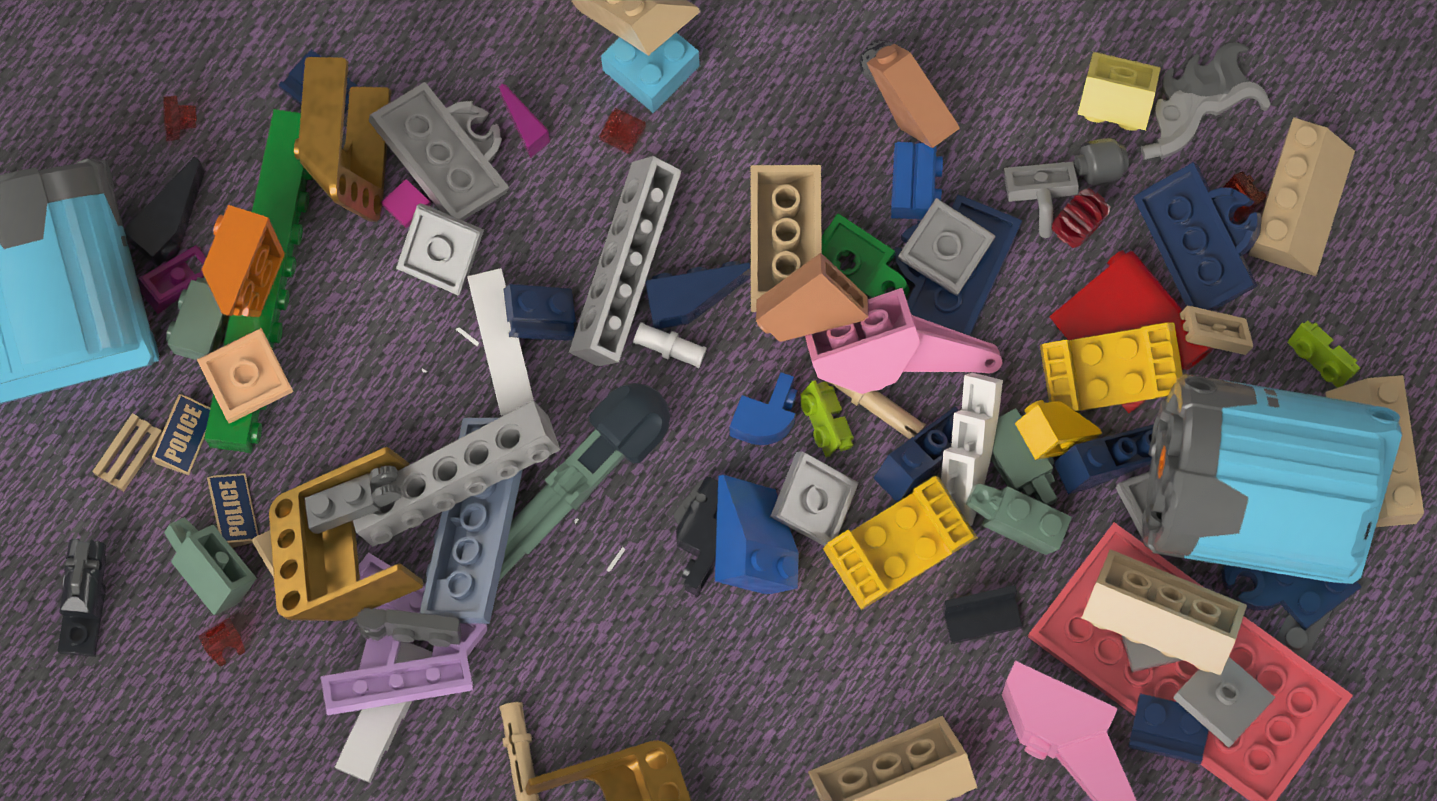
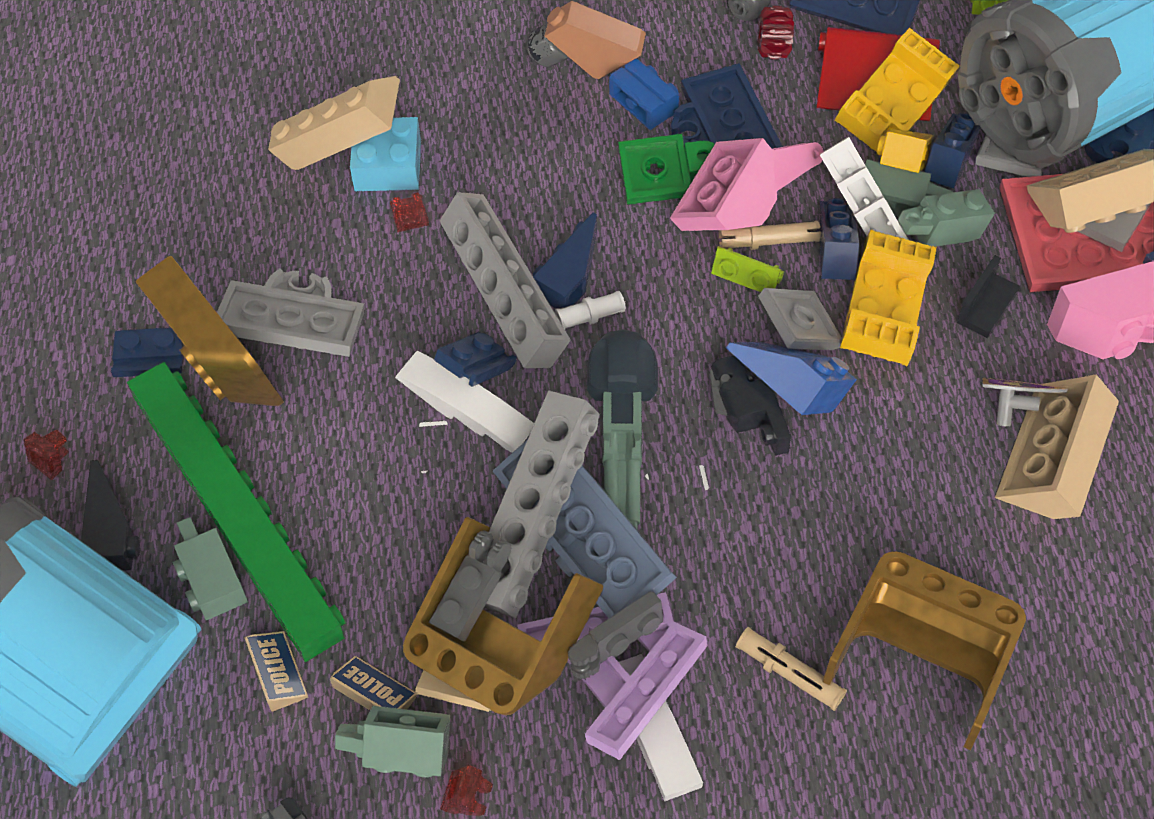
camera: 45 degrees left, 15 degrees down
(118, 442) = (236, 692): tan tile -> none
(165, 283) = (155, 567): magenta slope -> none
(242, 262) = (210, 471): orange wedge -> none
(245, 375) = (291, 571): light nougat plate -> none
(403, 202) = (294, 374): dark pink tile -> none
(439, 249) = (355, 377): plate -> none
(530, 129) = (333, 255): magenta slope -> none
(763, 422) = (710, 299): blue brick -> none
(783, 223) = (600, 179): tan slope -> none
(811, 302) = (667, 190): nougat slope -> none
(908, 706) = (1010, 401): none -> light grey shield
(946, 247) = (712, 106): light grey plate -> none
(1043, 184) = (724, 36): light grey plate -> none
(1215, 334) = (932, 28): tan tile -> none

